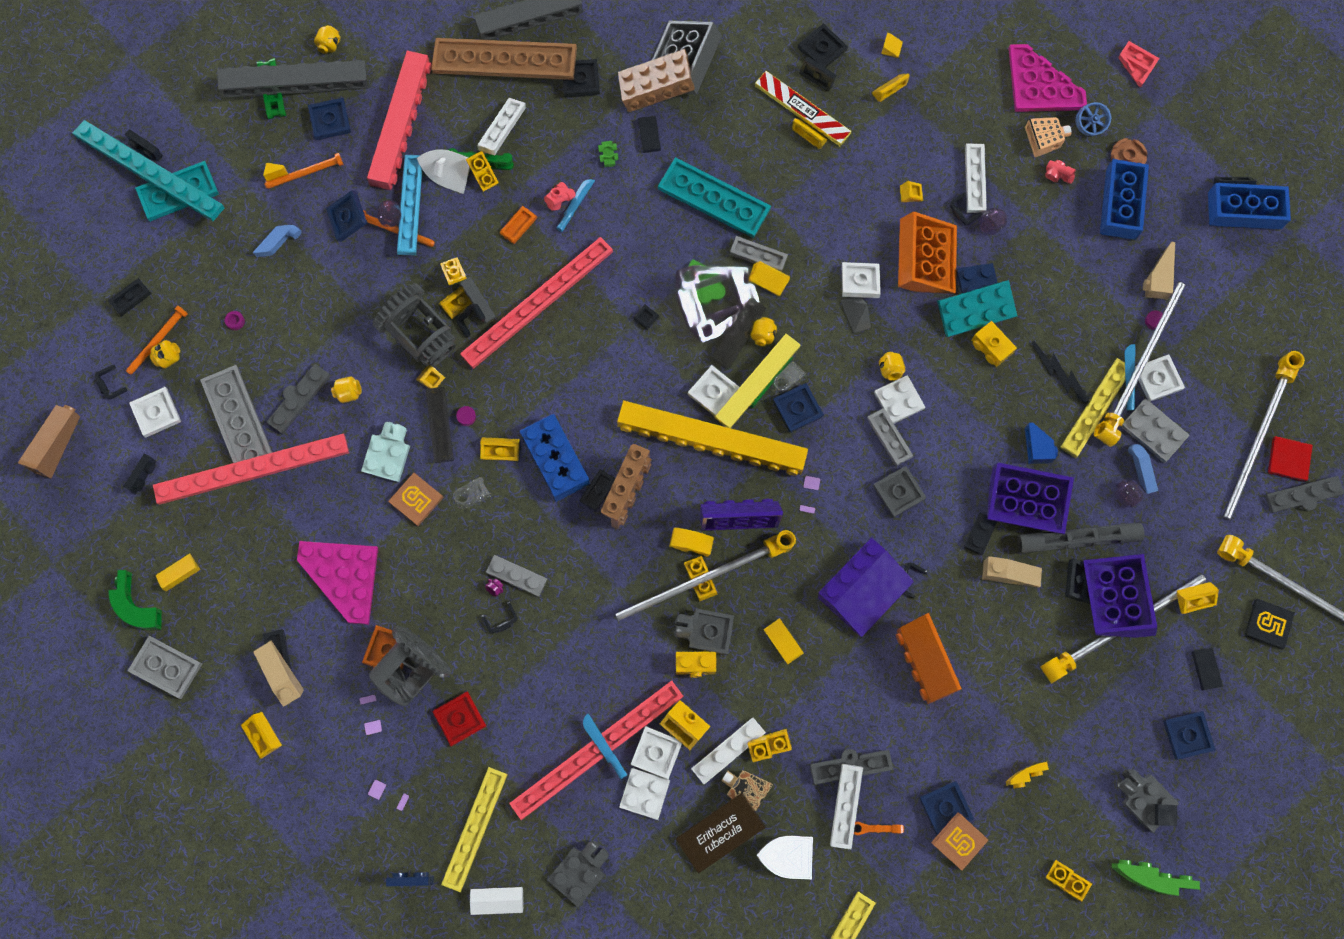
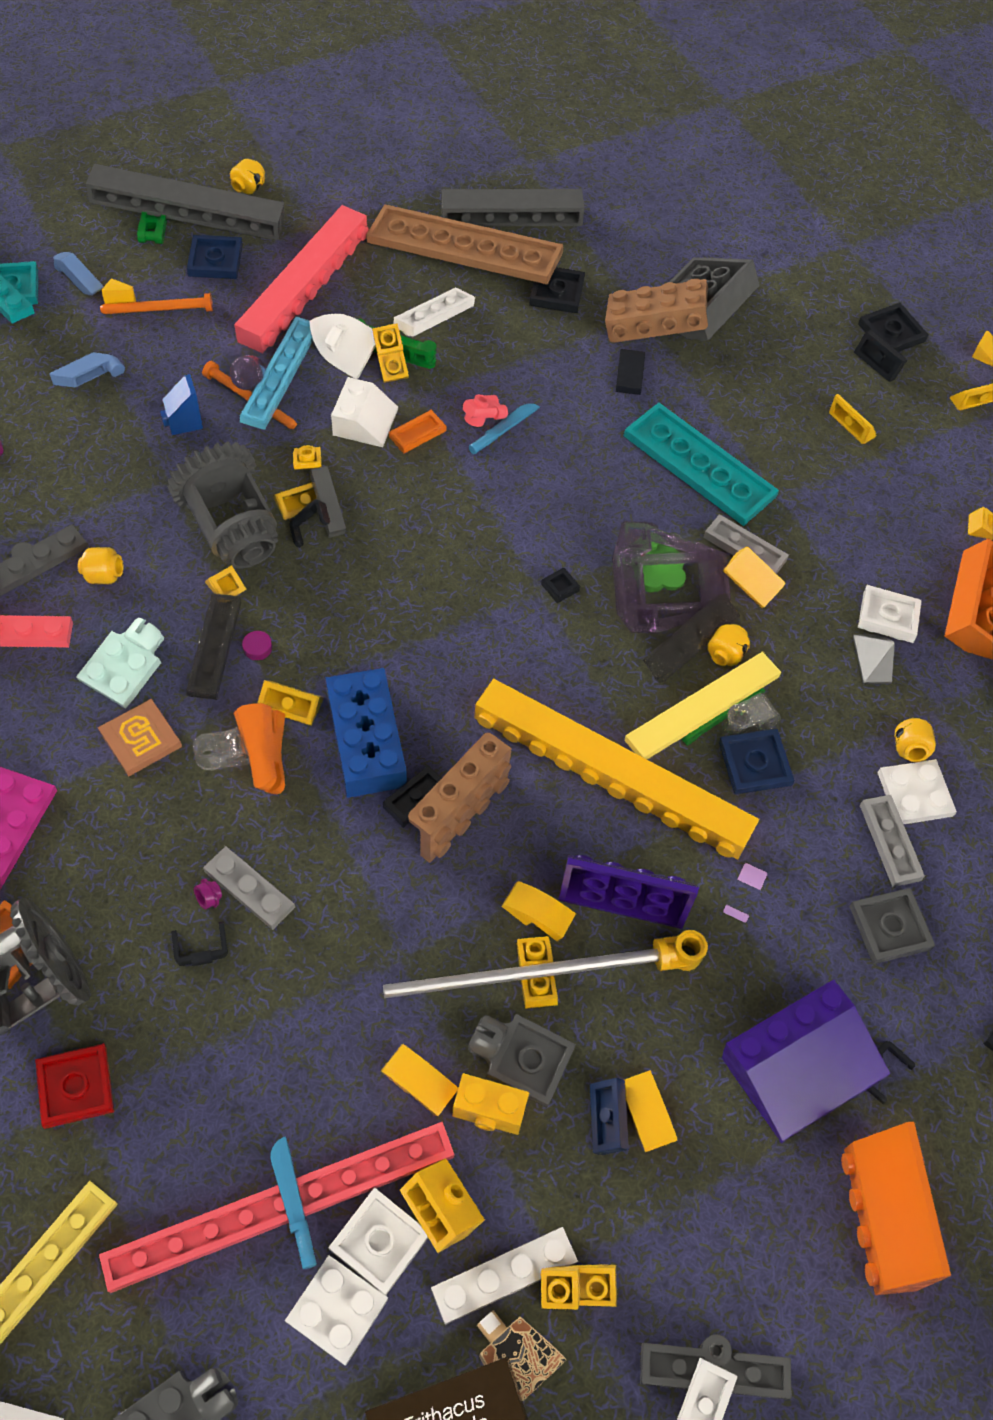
camera: 15 degrees right, 15 degrees down
(237, 161) = (77, 273): none -> medium blue piece
(346, 215) = (191, 357): dark blue plate -> none
(355, 256) = (182, 408): none -> blue slope
(478, 223) = (363, 413): none -> white slope
(493, 480) = (262, 736): none -> orange piece
(536, 303) = (407, 528): coral plate -> none
(608, 156) = (568, 380): bright green piece -> none
(652, 660) = (420, 1079): none -> yellow slope
(713, 390) = (630, 702): white plate -> none
(762, 650) = (609, 1116): none -> dark blue plate
(803, 108) = (840, 382): tile -> none

